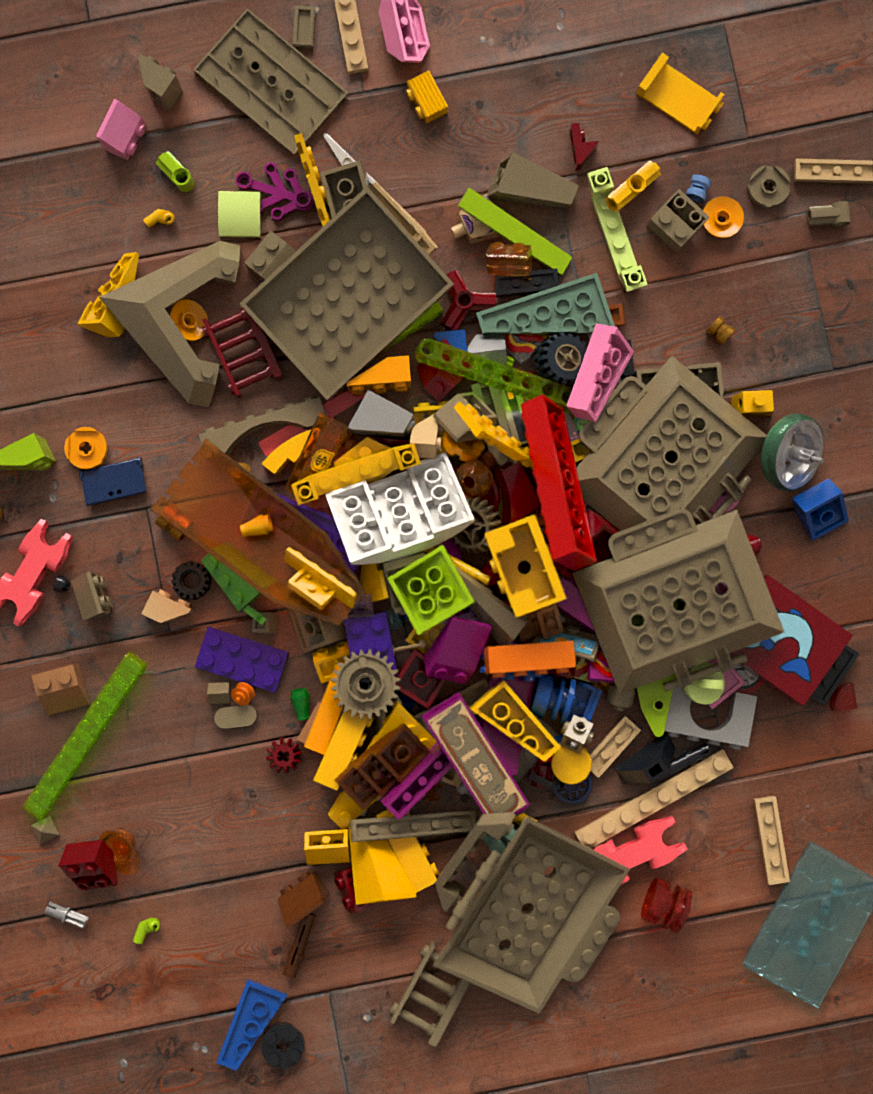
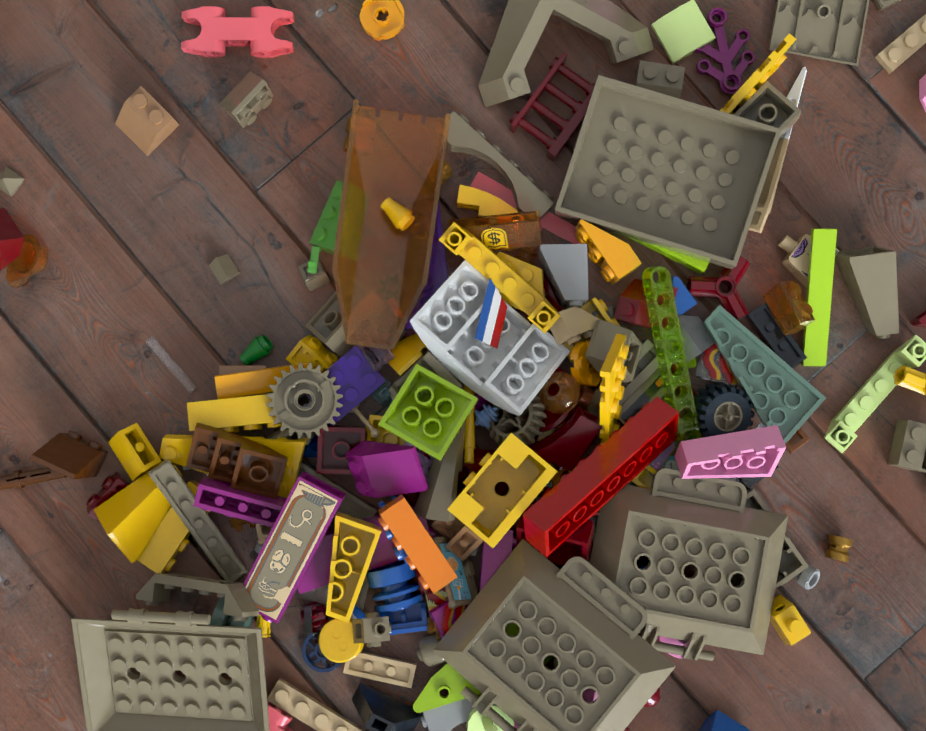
camera: 55 degrees right, 0 degrees up
(61, 584) = (242, 66): black hinge -> none
(84, 736) = (114, 167): clear neon green beam -> none
(112, 478) = (368, 56): dark blue door -> none
(164, 609) = (273, 172): tan slope -> none
(182, 571) = (307, 171): black tyre -> none
(193, 314) = (564, 42): light orange dish -> none
(235, 716) = (210, 296): dark tan tile -> none
(241, 659) = (267, 272): dark purple plate -> none
(242, 693) = (234, 291): orange wheel -> none
(273, 779) = (171, 364): none -> clear bar
(284, 763) = (204, 356): dark red gear -> none
(315, 583) = (372, 299): yellow bracket -> none
(383, 498) = (491, 317): none -> sticker
(426, 97) = (897, 142): yellow brick -> none
(444, 1011) = (41, 650): dark tan fence -> none
(459, 547) = (486, 415): none -> medium blue wheel
(729, 367) = (808, 577): none -> light grey tile
(802, 454) = (774, 682): flat silver wheel -> none

